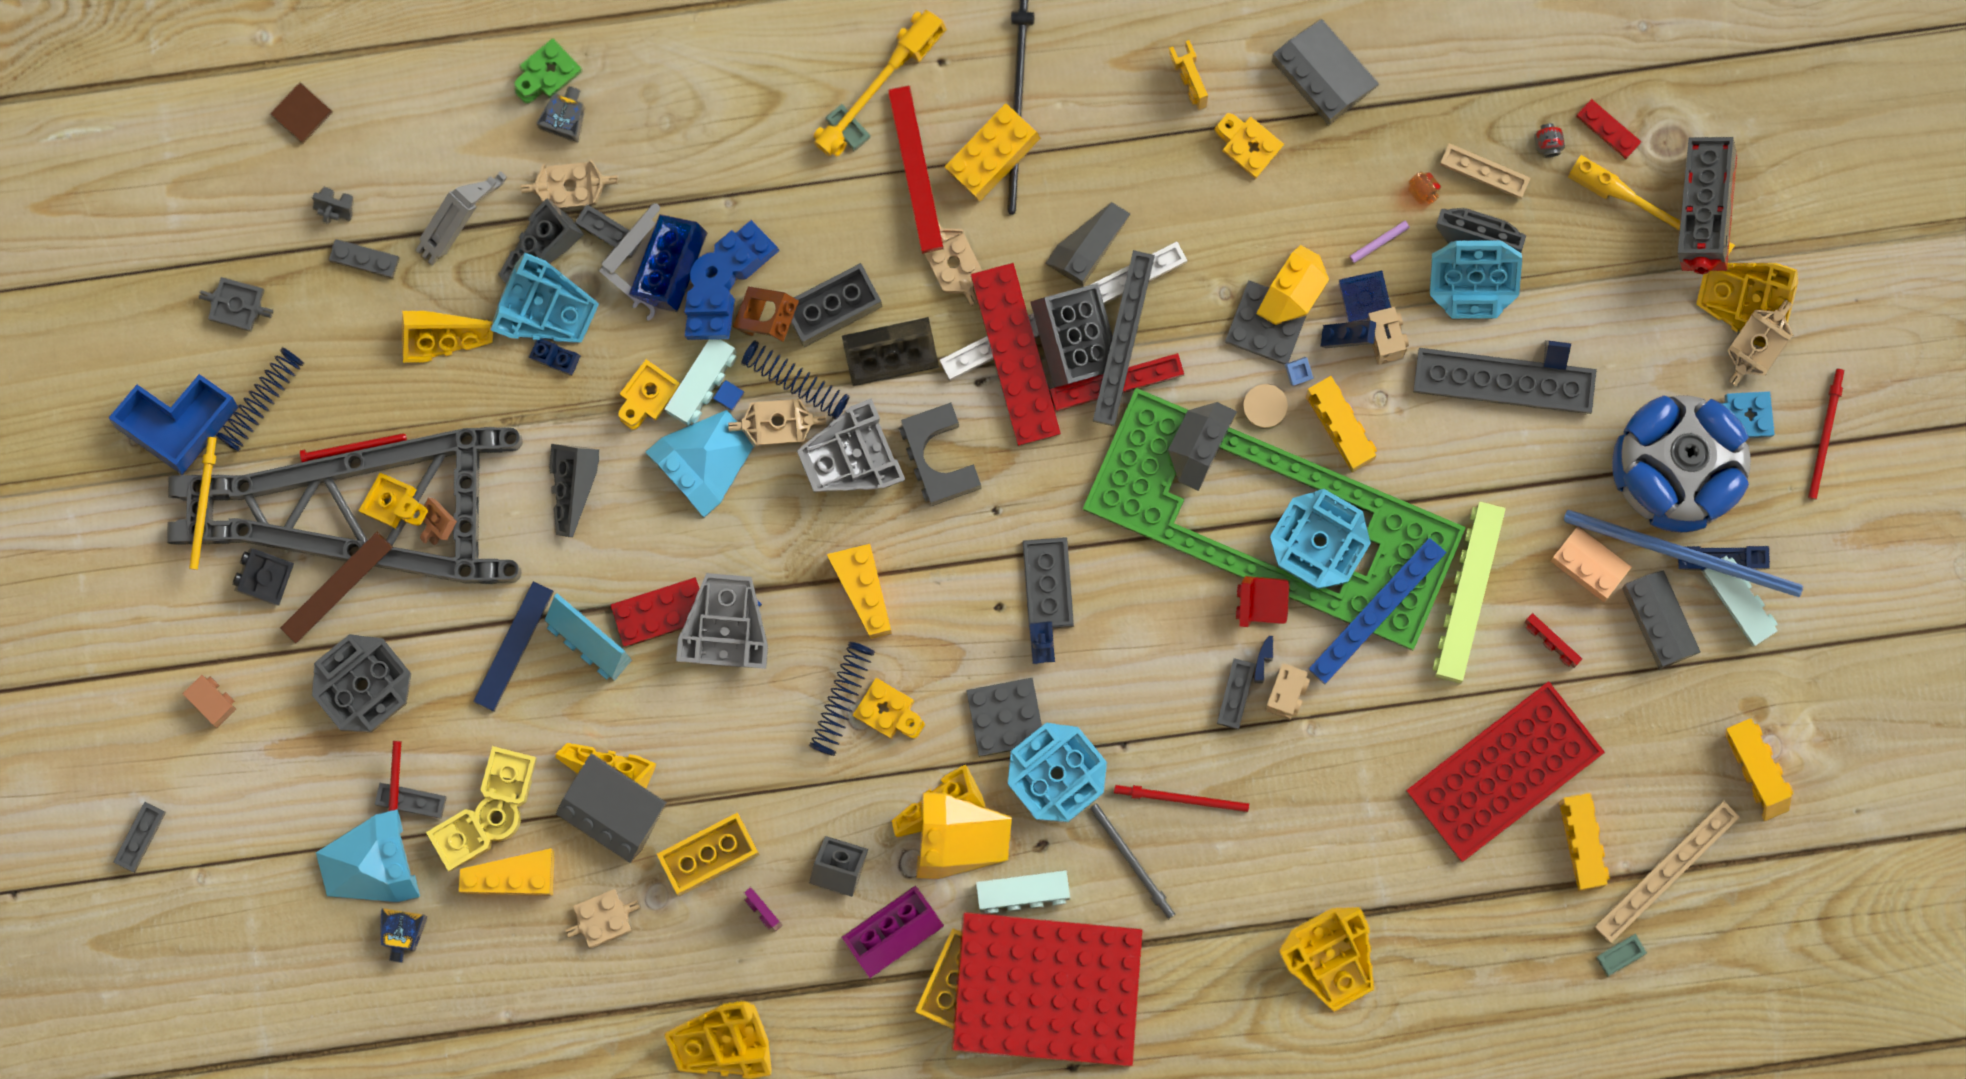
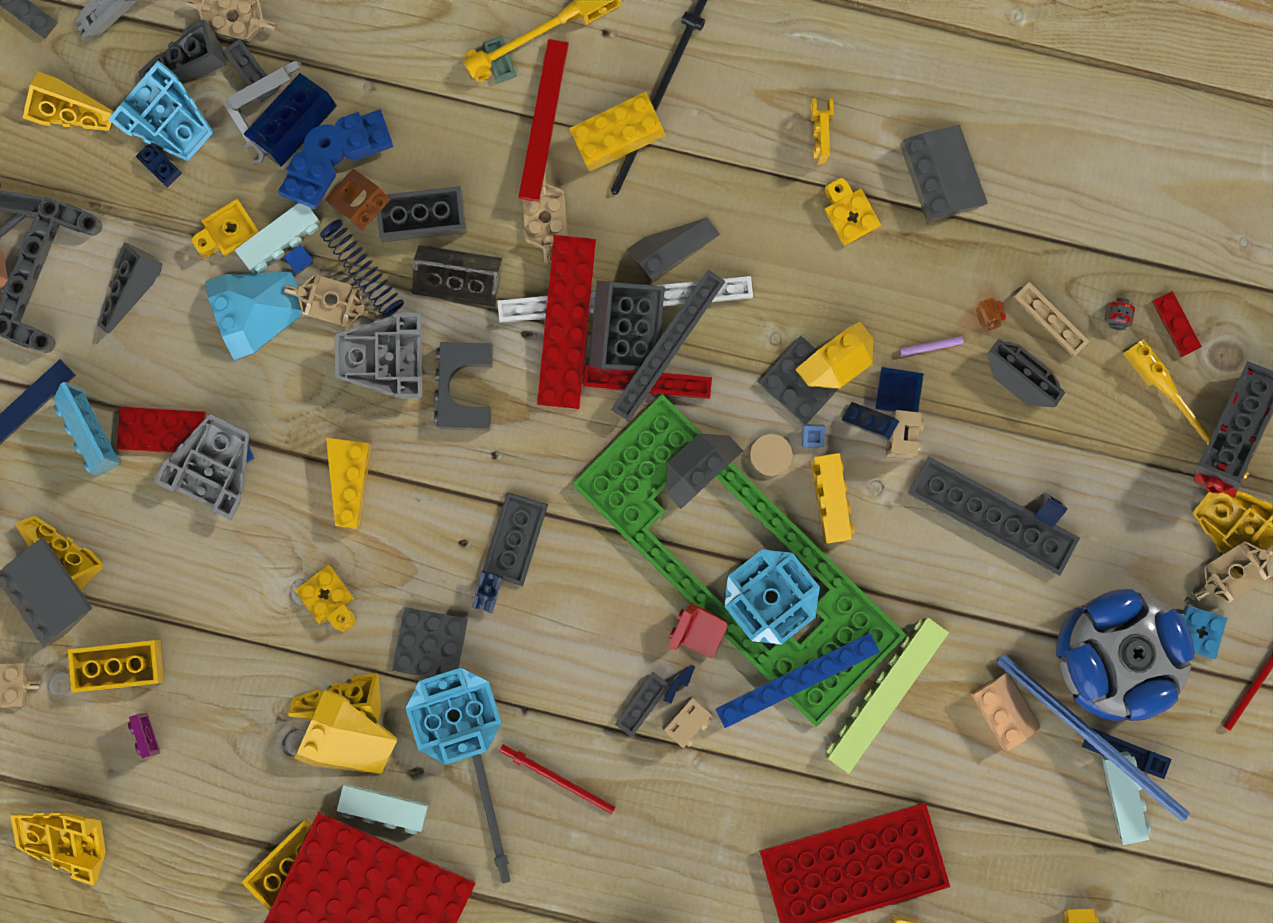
camera: 10 degrees right, 5 degrees up
(817, 746) = (320, 532): dark blue piece -> none
(838, 866) = (228, 721): dark grey slope -> none
(892, 931) = (252, 799): magenta slope -> none
(1475, 278) = (1004, 414): medium azure piece -> none
(1552, 641) = (942, 768): red plate -> none
(1661, 619) = (1047, 786): dark grey slope -> none

